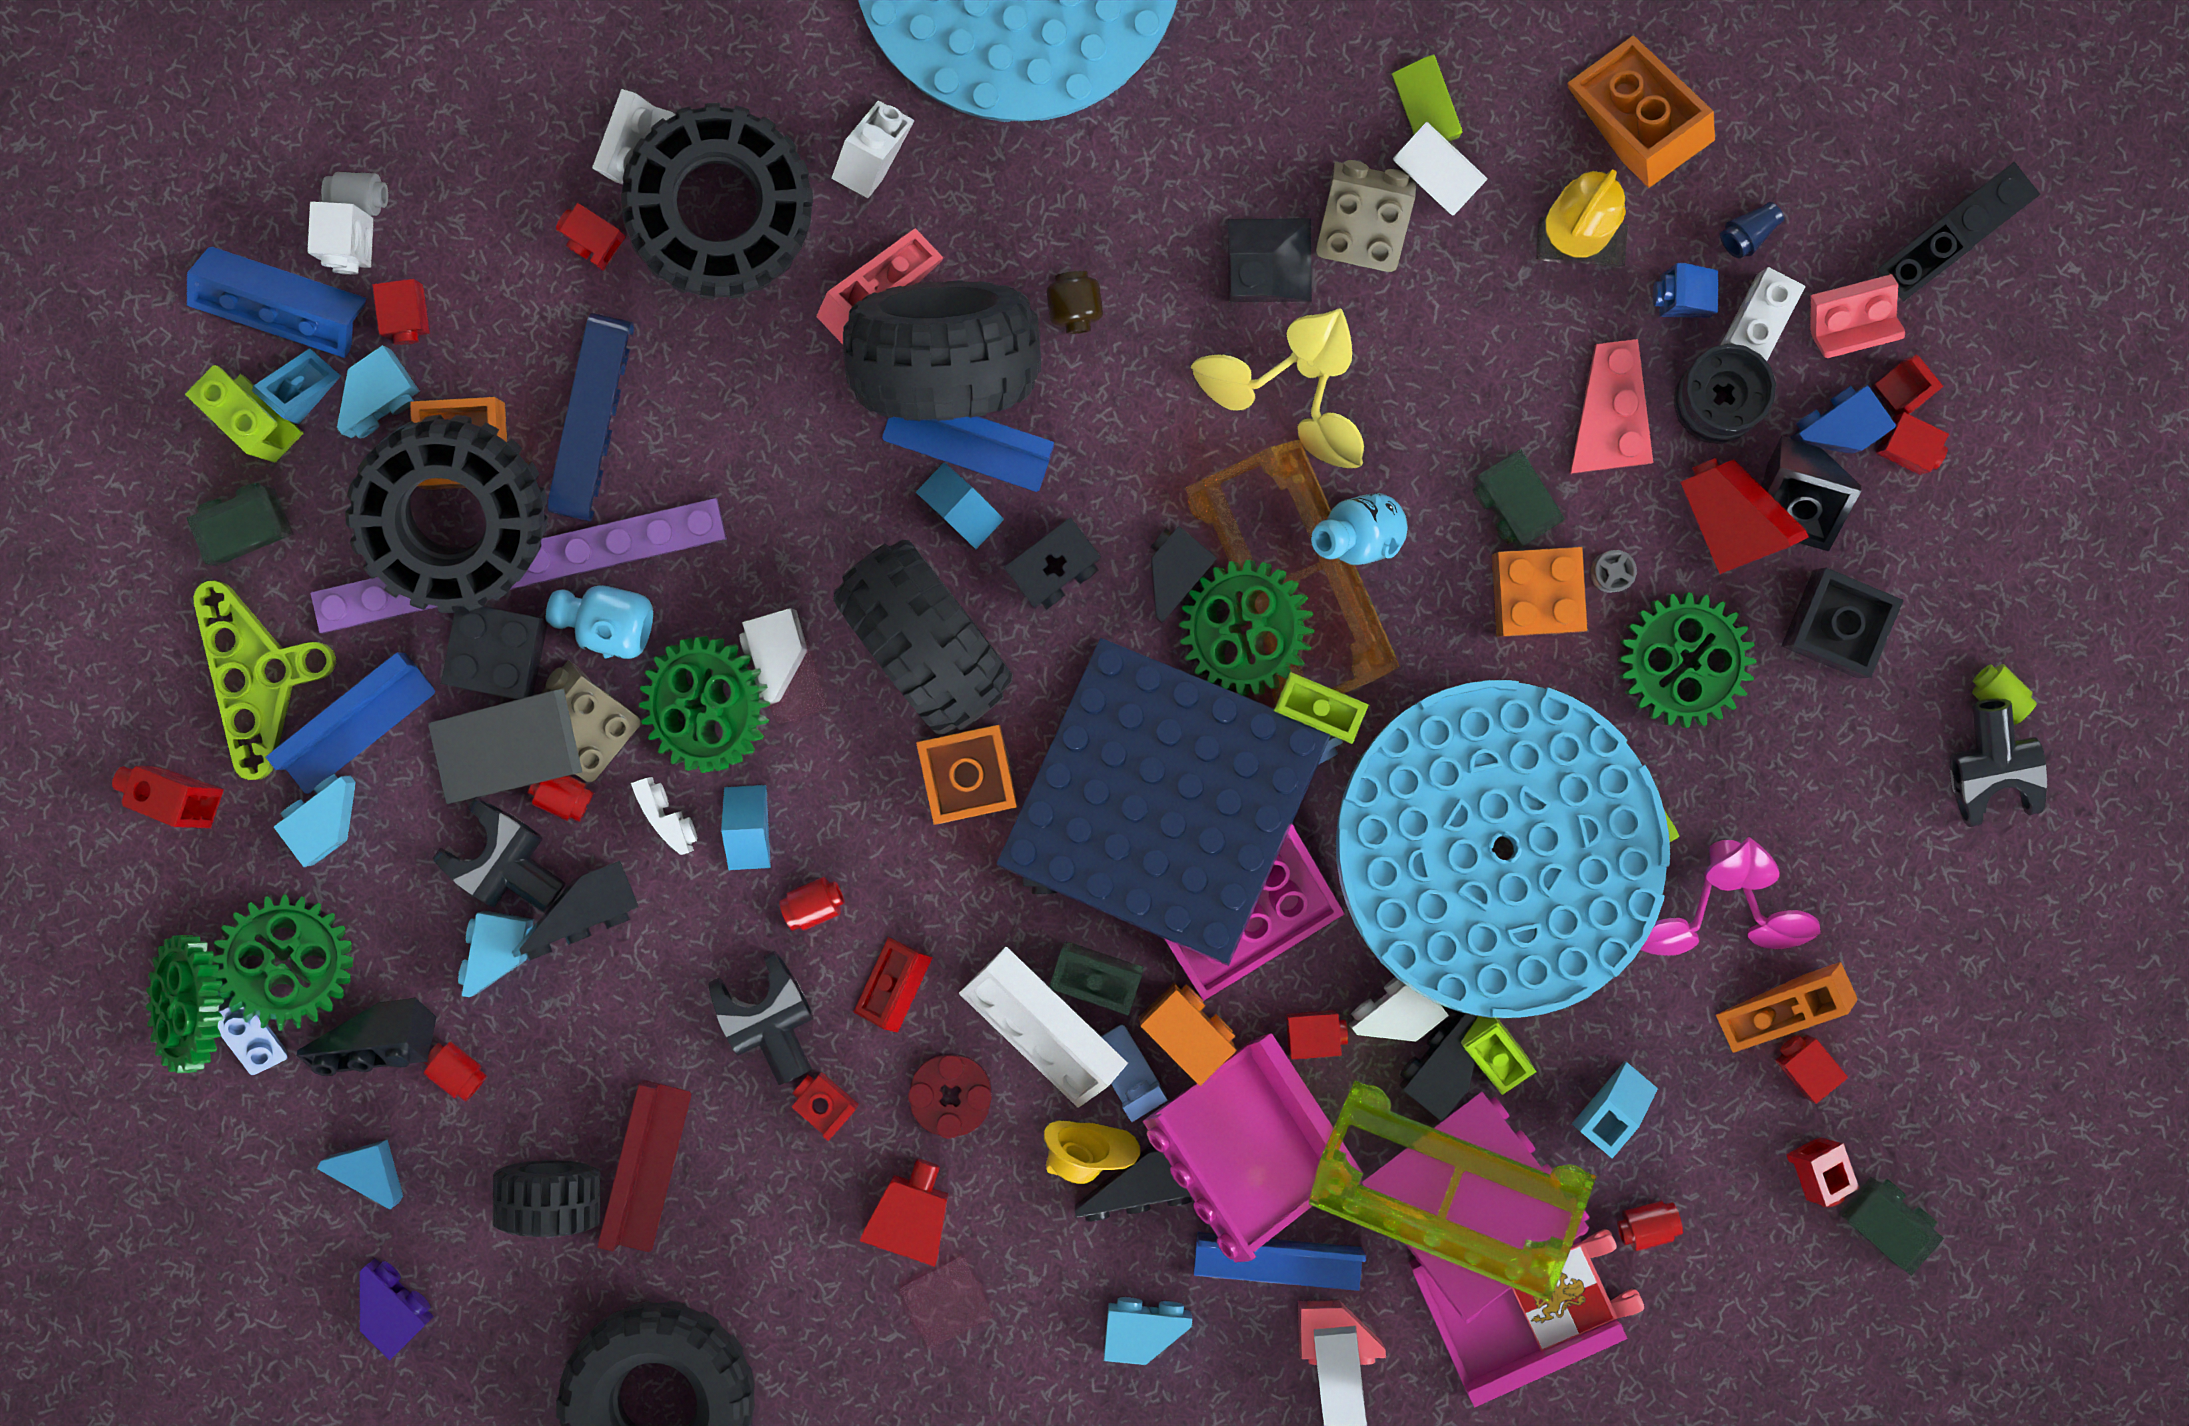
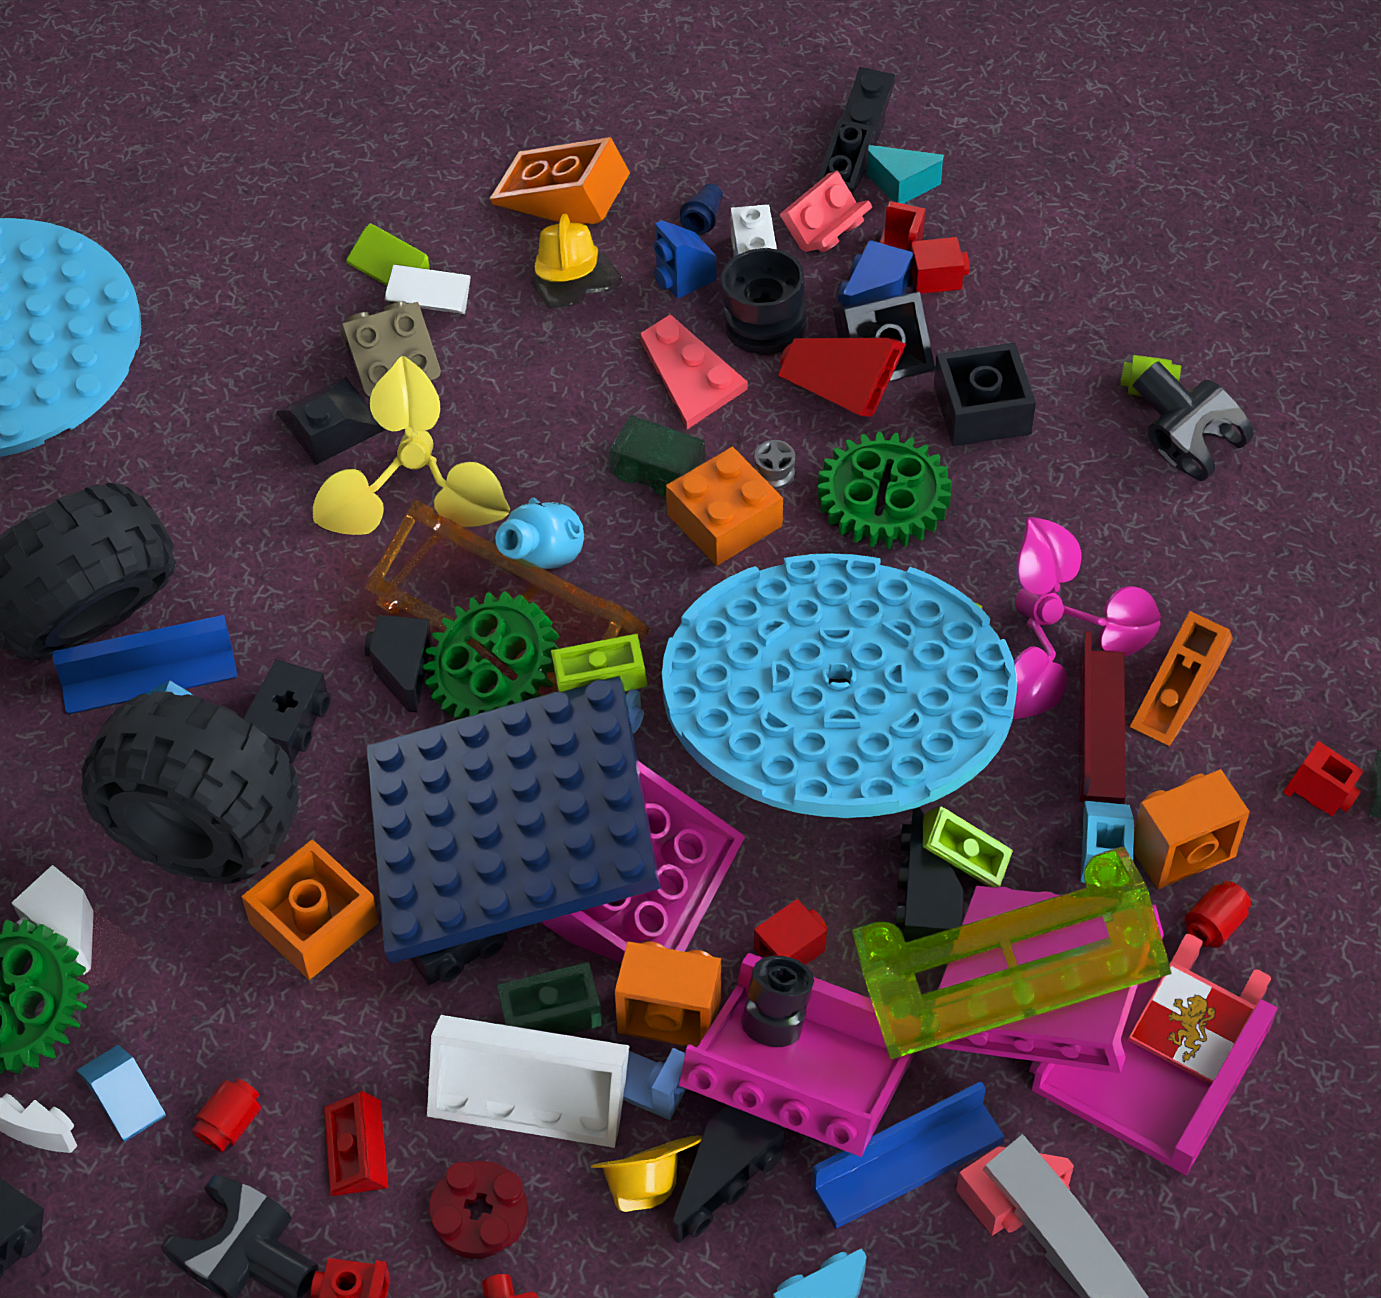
camera: 30 degrees left, 35 degrees down
(1074, 301) = (182, 517): dark brown head -> none
(1262, 1095) = (777, 1001): none -> black wheel
(1398, 1014) = (857, 875): white slope -> none
(1680, 1153) = (1189, 828): none -> orange brick
(1693, 1001) = (1101, 725): none -> dark red panel
(1810, 1067) = (1240, 710): red brick -> none
(1962, 310) = (903, 172): none -> teal slope

